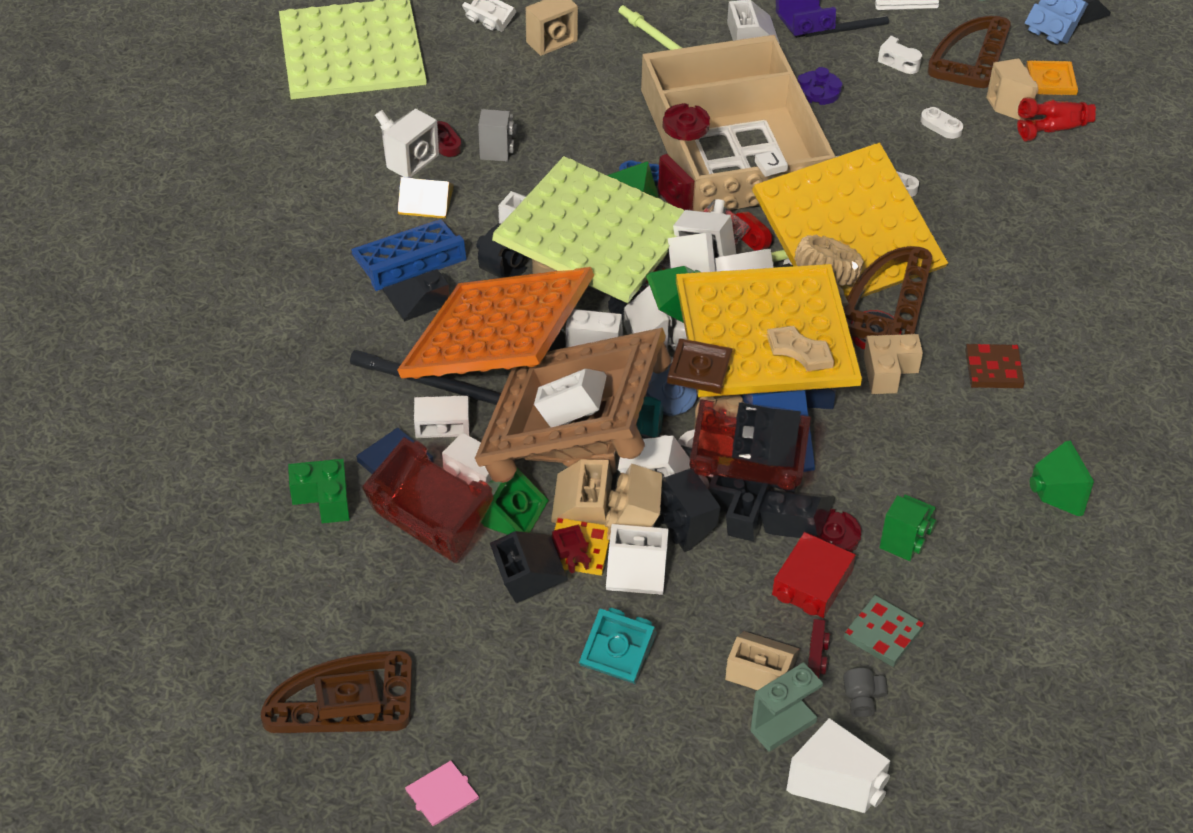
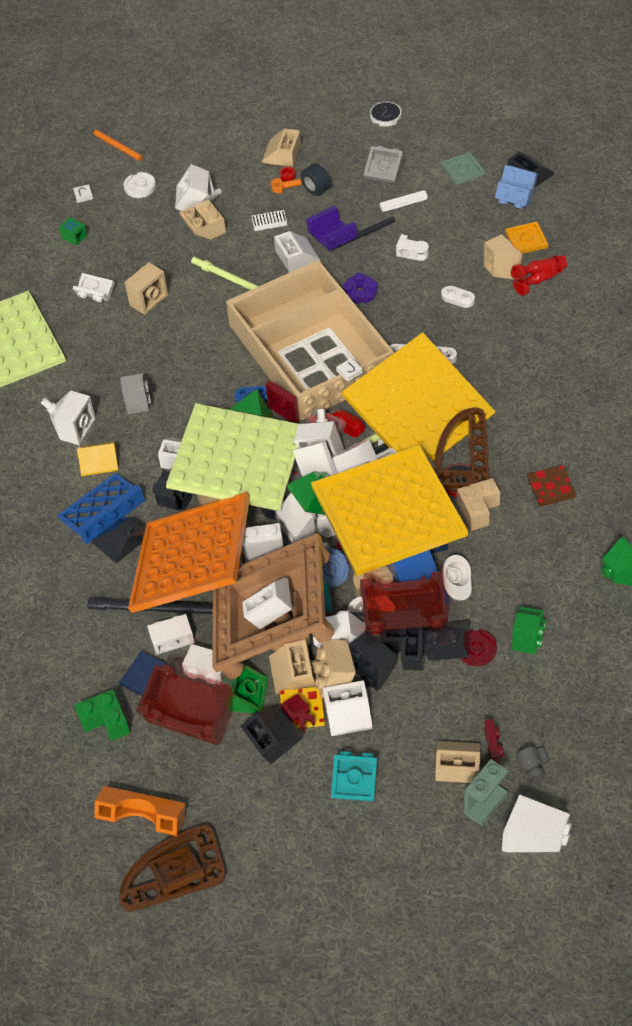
camera: 10 degrees left, 5 degrees up
(300, 596) = (116, 804): none -> orange arch
(442, 793) = (266, 922): bright pink piece -> none
(448, 140) = (100, 406): dark red plate -> none
(686, 122) = (276, 351): dark red tile -> none
(699, 366) = (351, 552): reddish brown tile -> none
(766, 434) = (413, 593): black slope -> none
(809, 352) = (426, 521): tan tile -> none
(813, 575) = (473, 685): red brick -> none
(823, 250) = (412, 433): tan gear -> none
(833, 440) = (457, 577): none -> white piece
(884, 630) = (533, 712): sand green tile -> none
(971, 73) = (468, 249): reddish brown beam -> none

